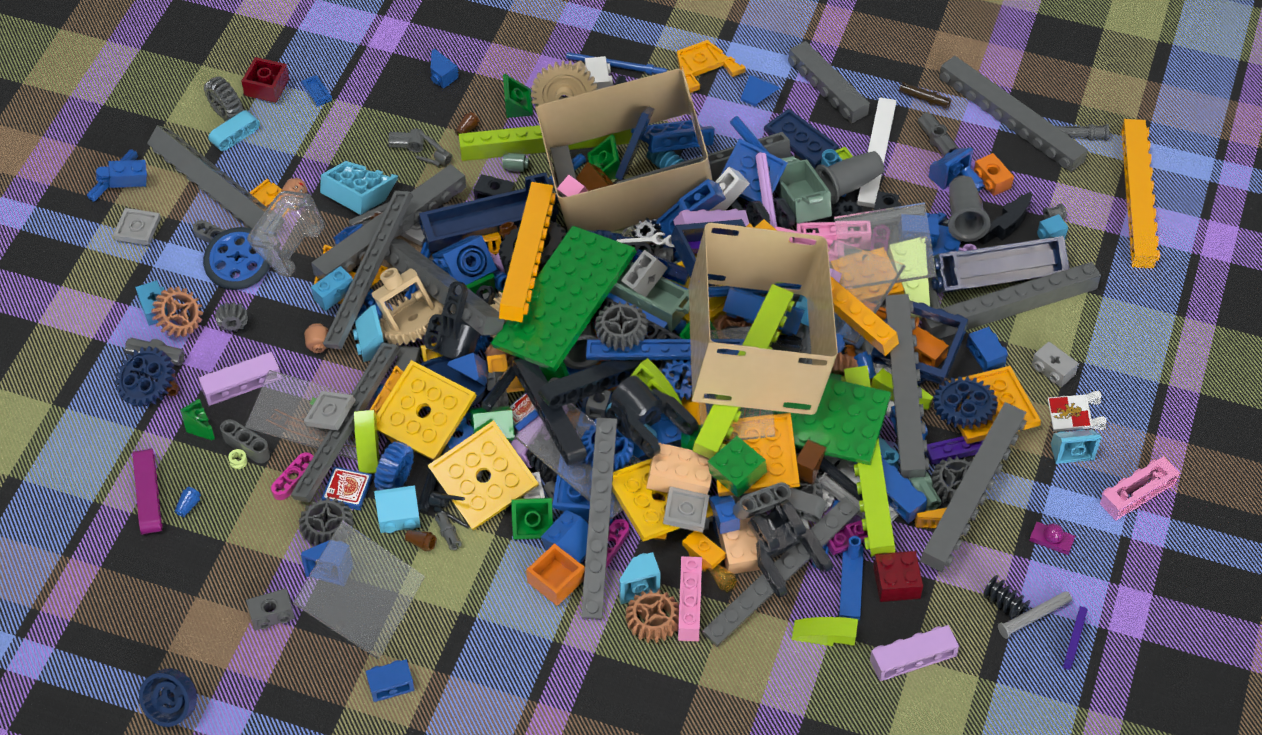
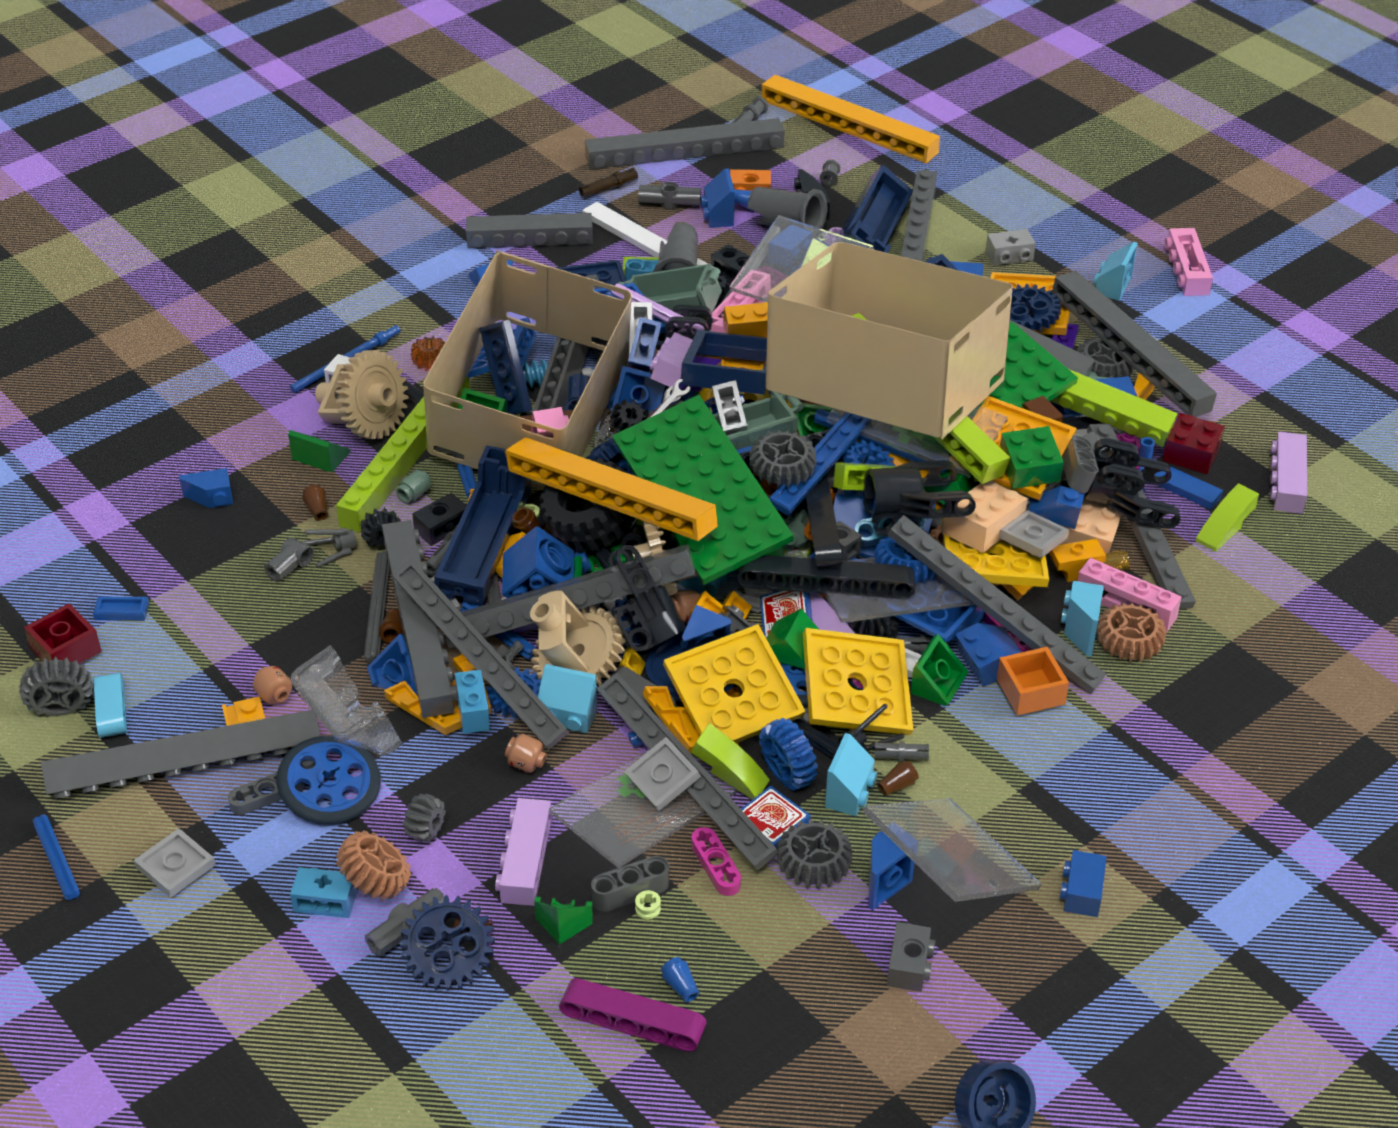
camera: 60 degrees left, 10 degrees down
(123, 173) = (79, 834): blue brick -> none
(356, 186) = (326, 622): medium azure wedge -> none
(462, 163) = (372, 526): none -> black gear
(499, 388) = (747, 605): black axle -> none
(704, 58) = (407, 300): light orange wing -> none
(1005, 599) = (1263, 387): black piece -> none
(1034, 614) = (1295, 404): light grey axle -> none
(1052, 227) = (849, 181): dark azure brick -> none
(1052, 537) = (1207, 335): magenta tile -> none
(1074, 412) = (1067, 261): flag -> none
(1075, 637) = (1332, 368): dark purple tile -> none

